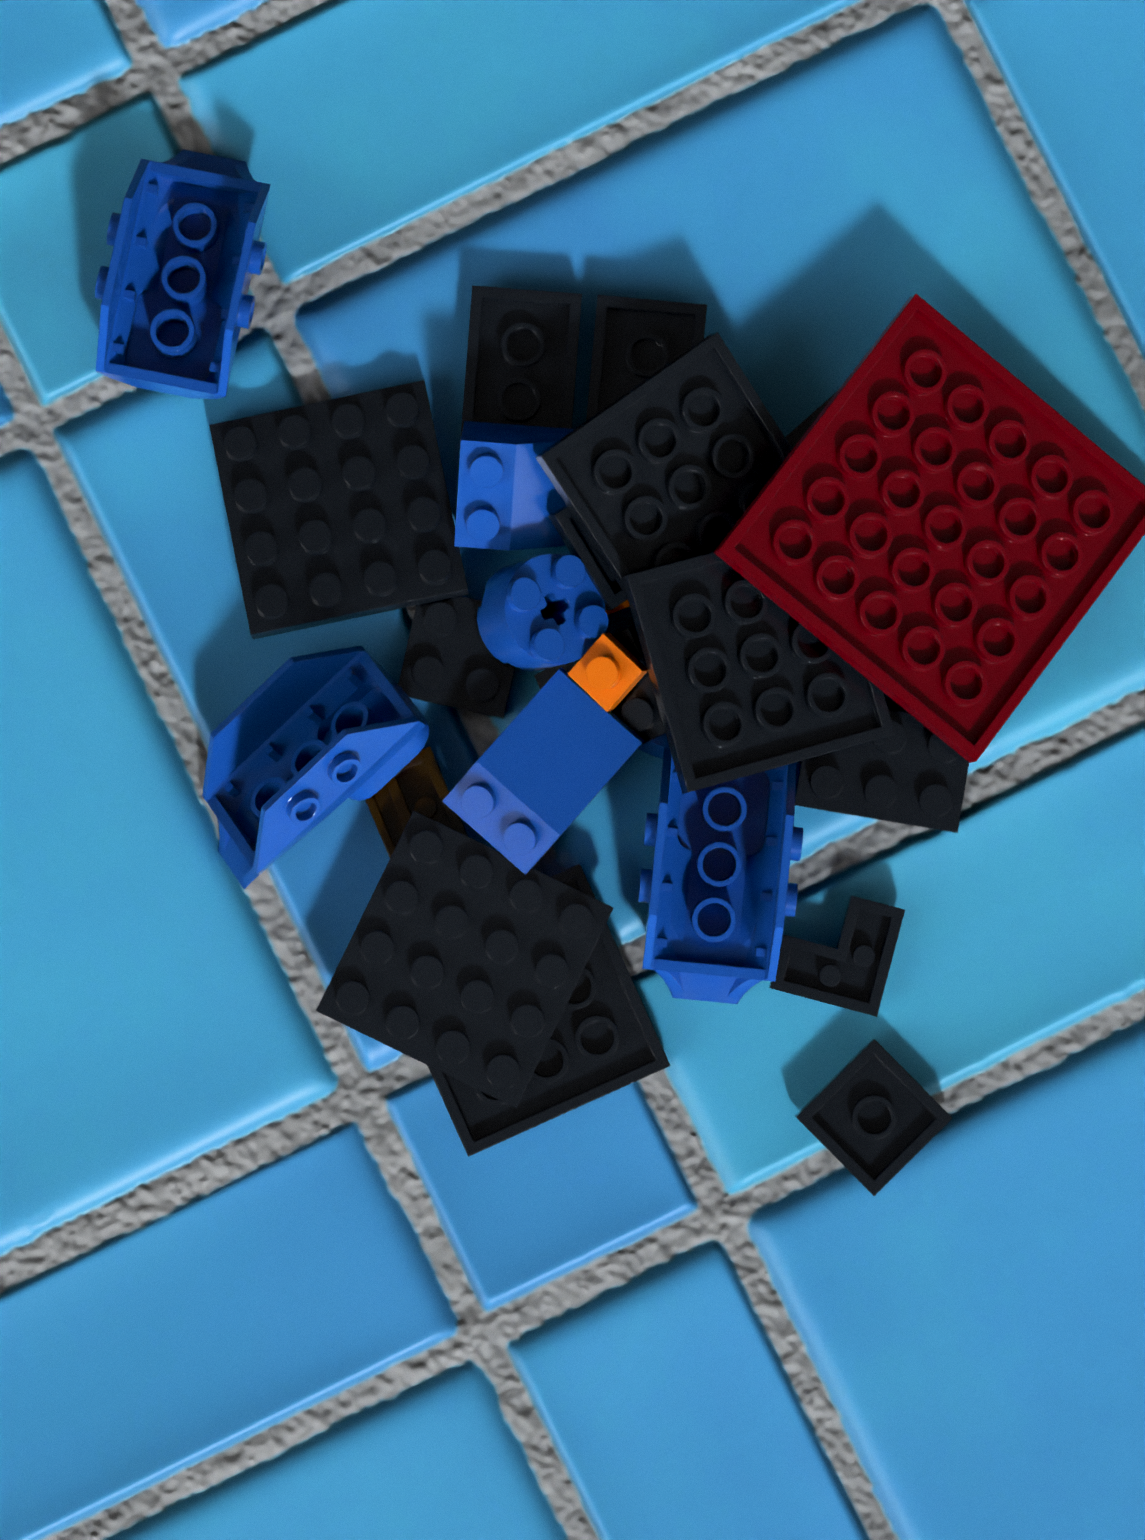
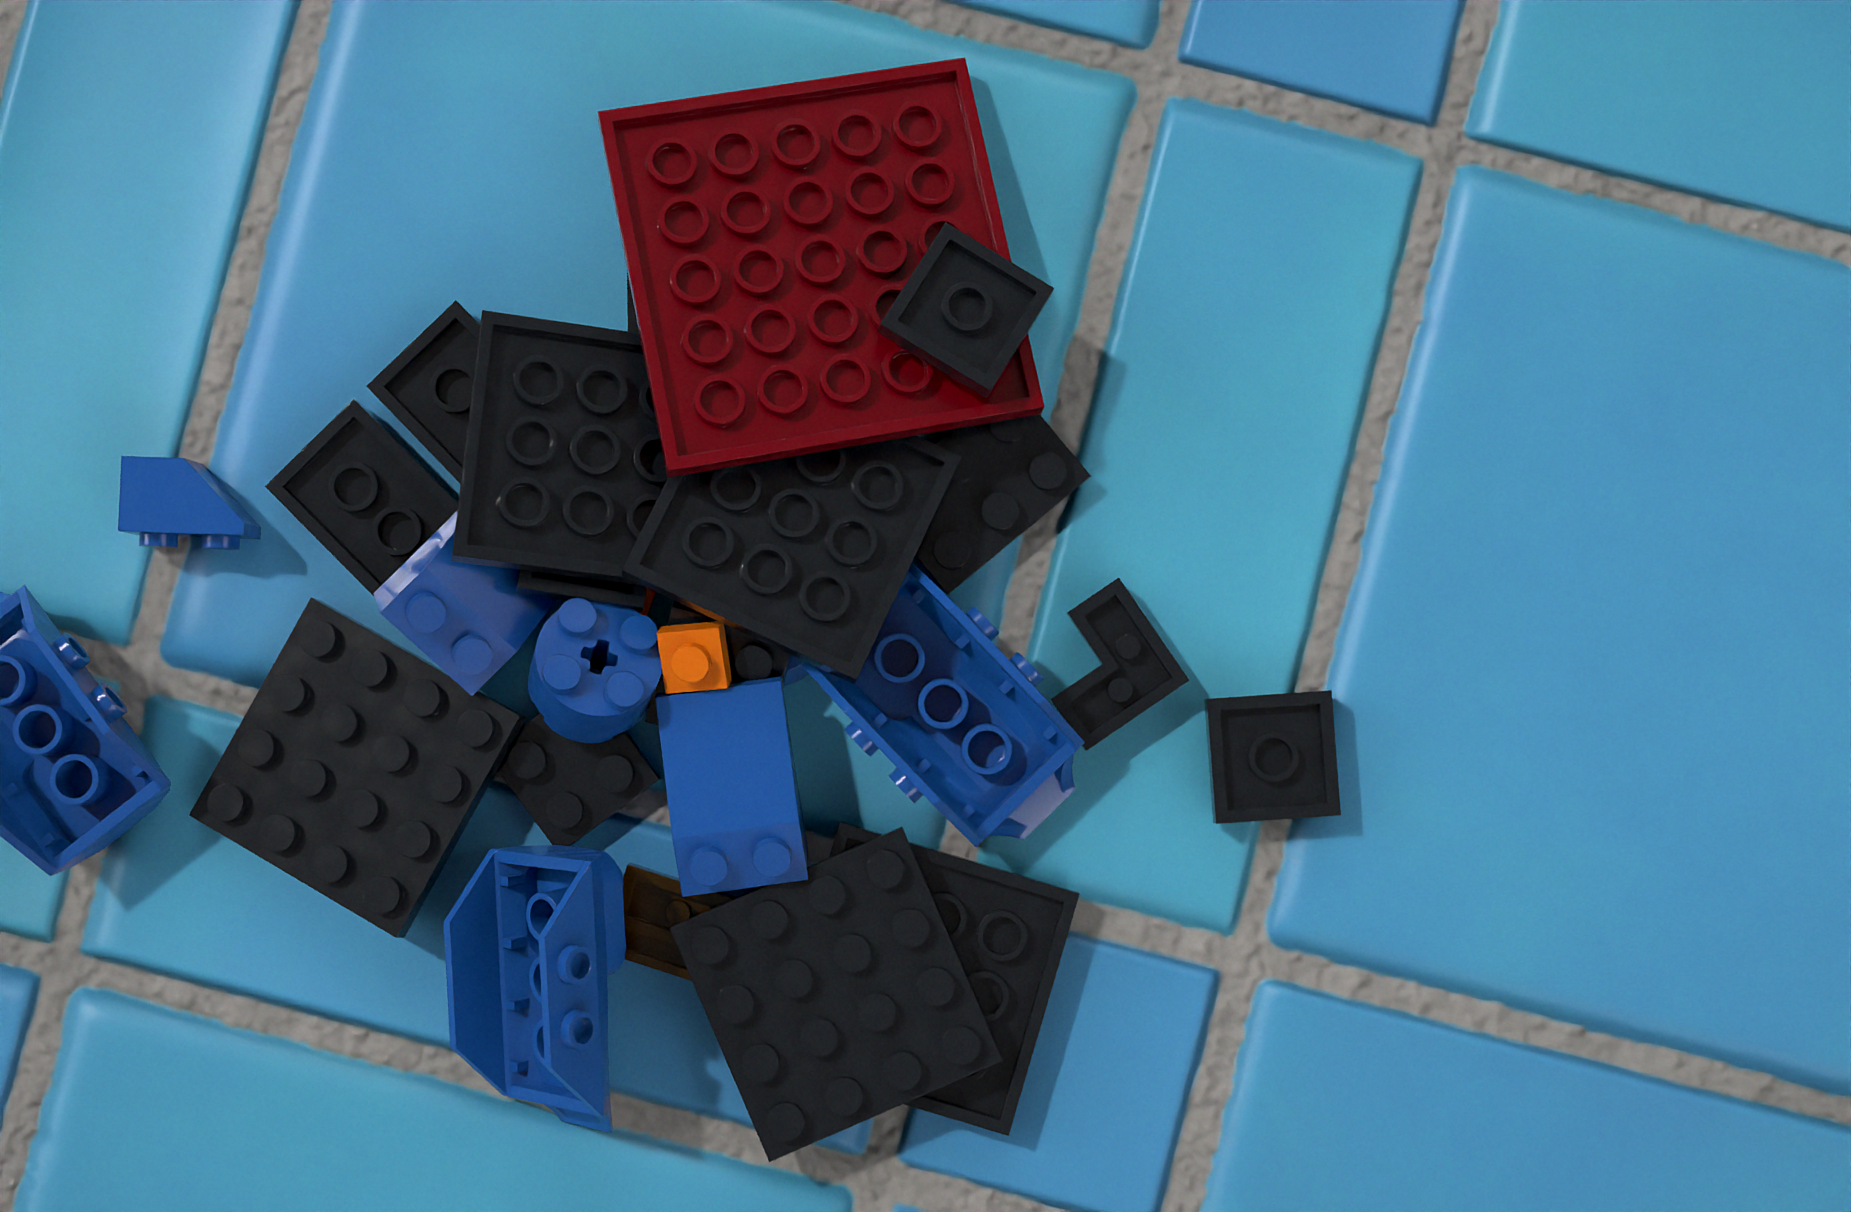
camera: 45 degrees left, 0 degrees up
(414, 237) = (179, 499): none -> blue slope
(995, 653) = (965, 310): none -> black plate

